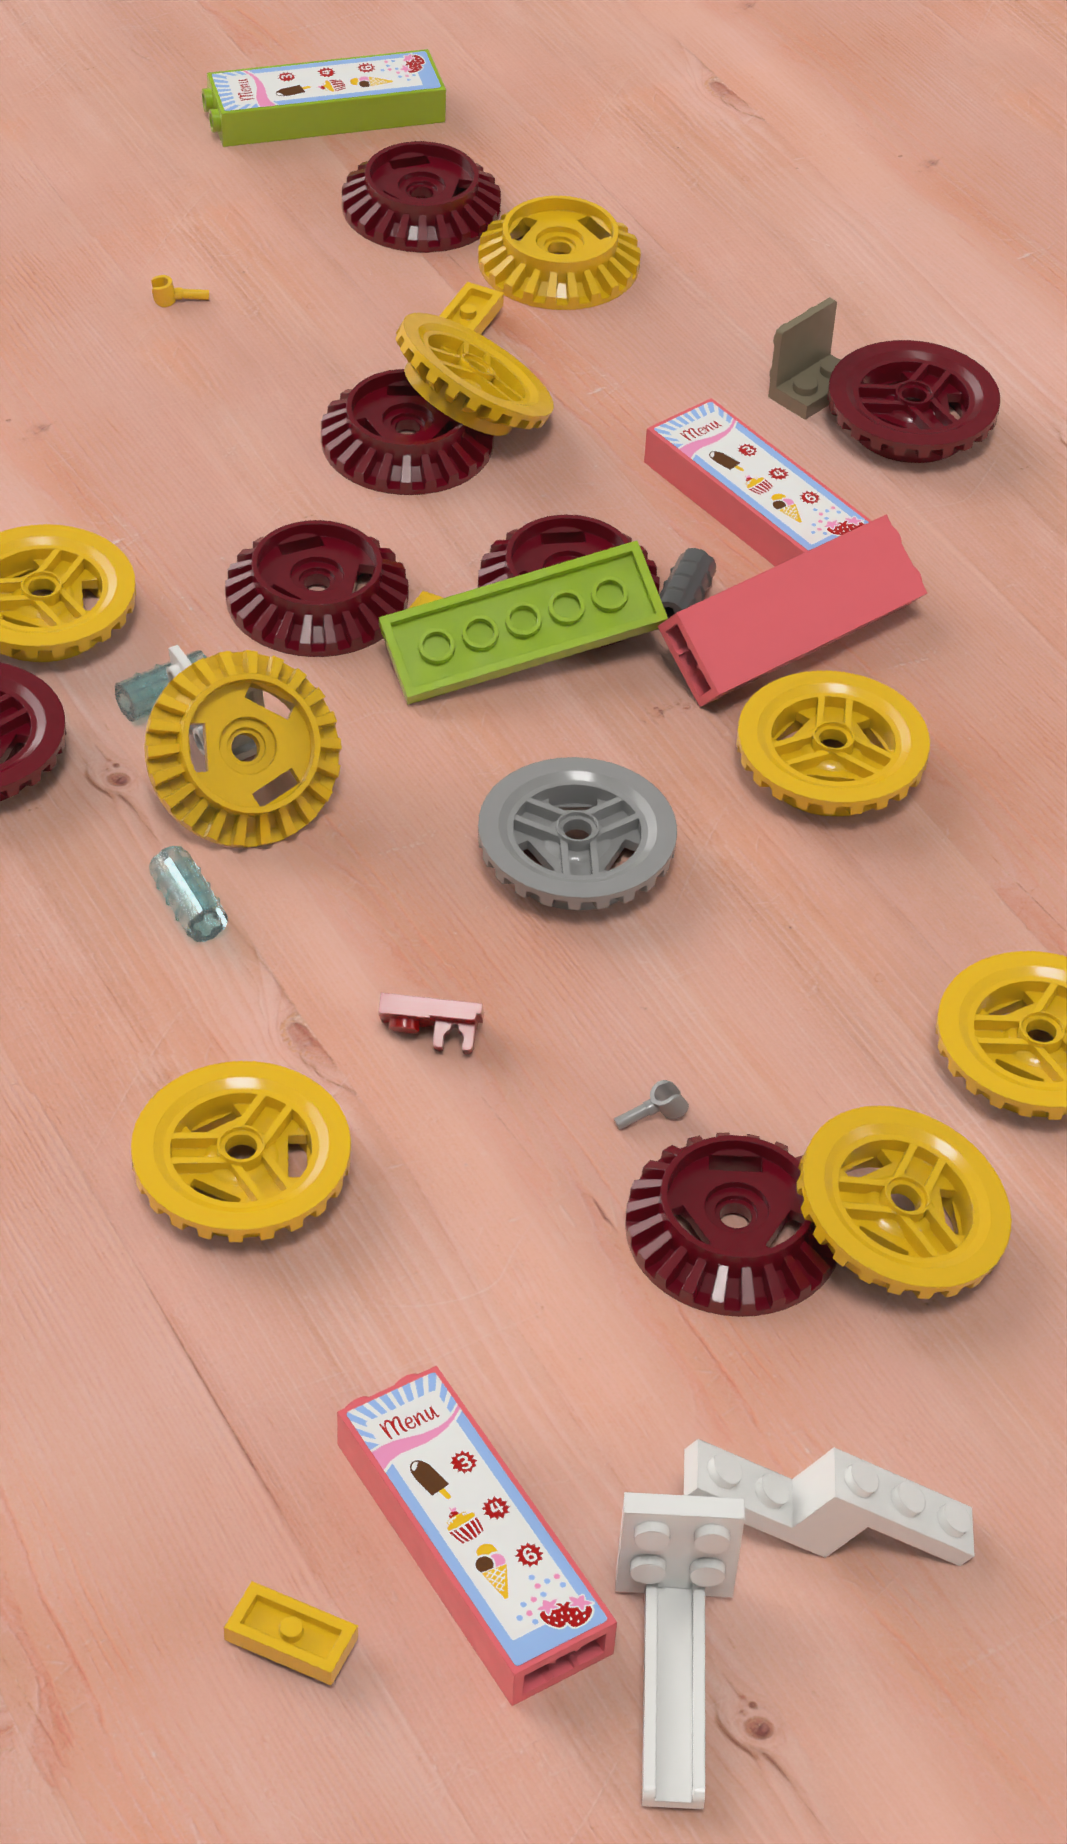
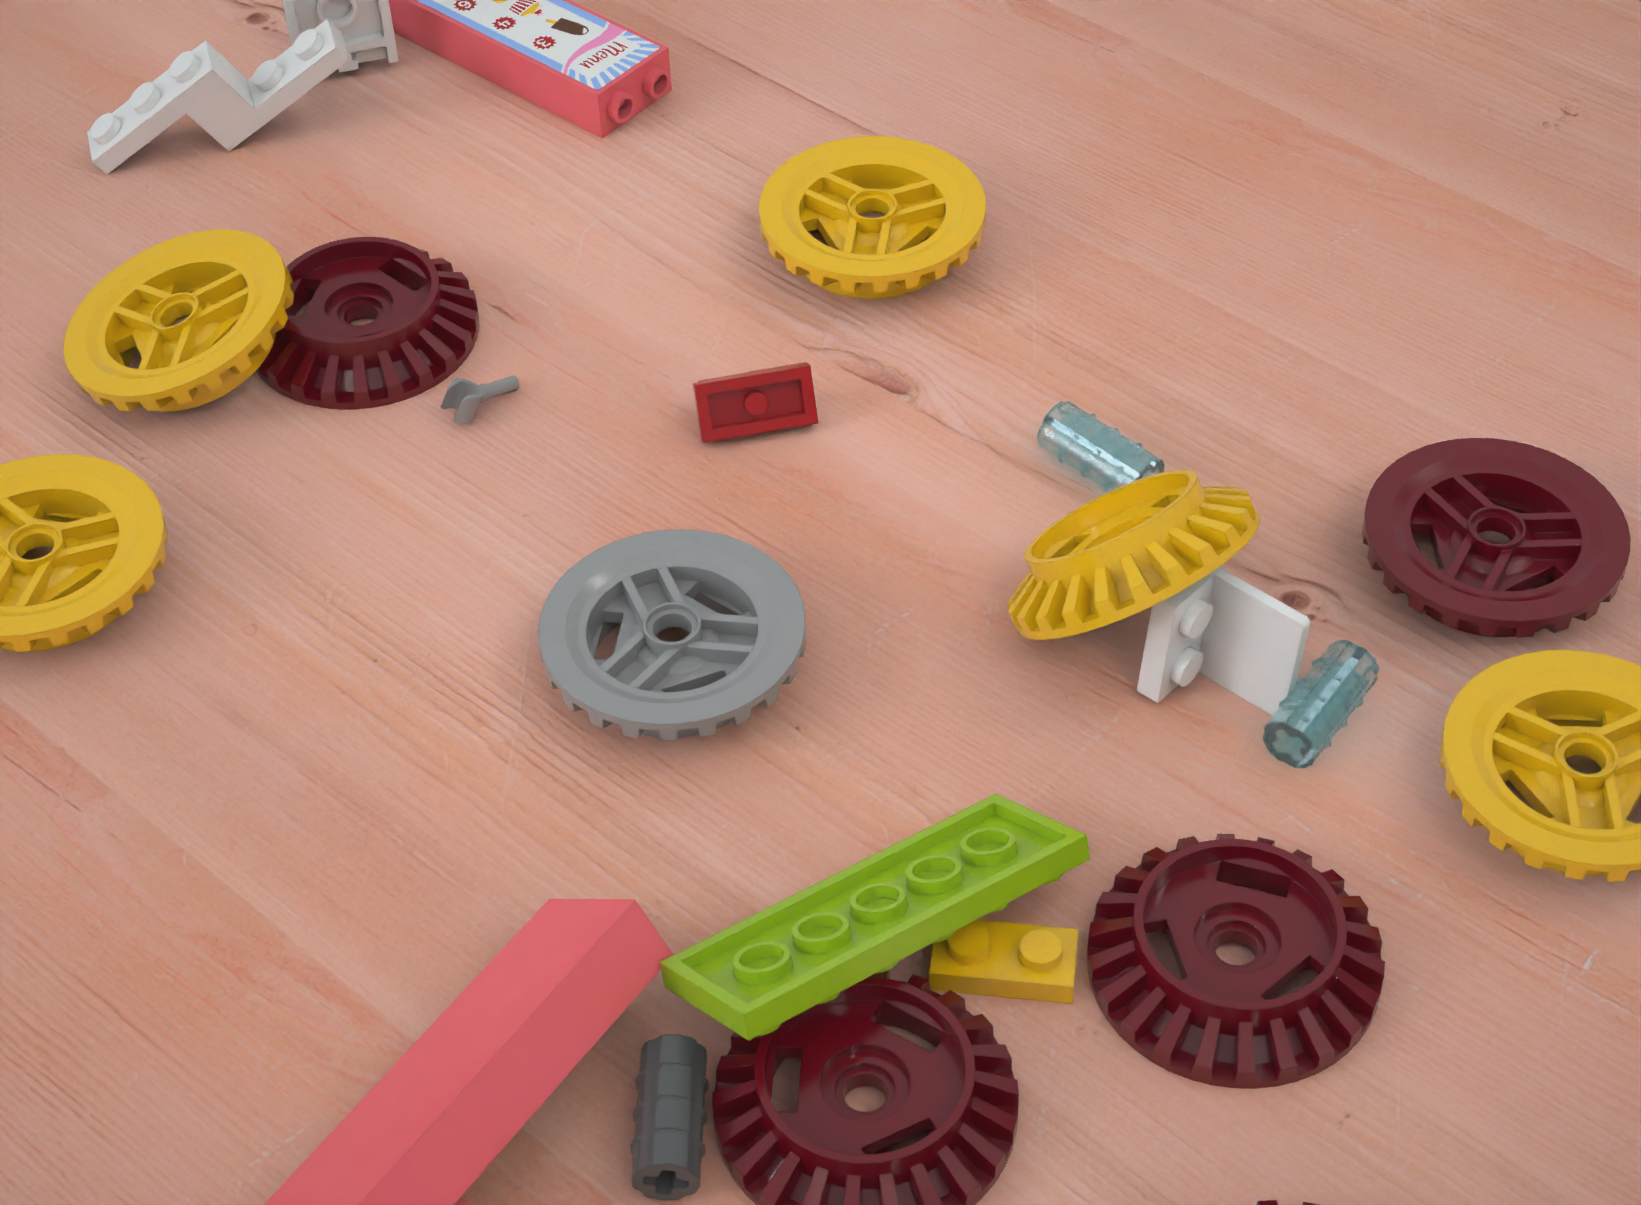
camera: 165 degrees right, 0 degrees up
(841, 709) = (352, 813): yellow gear -> none

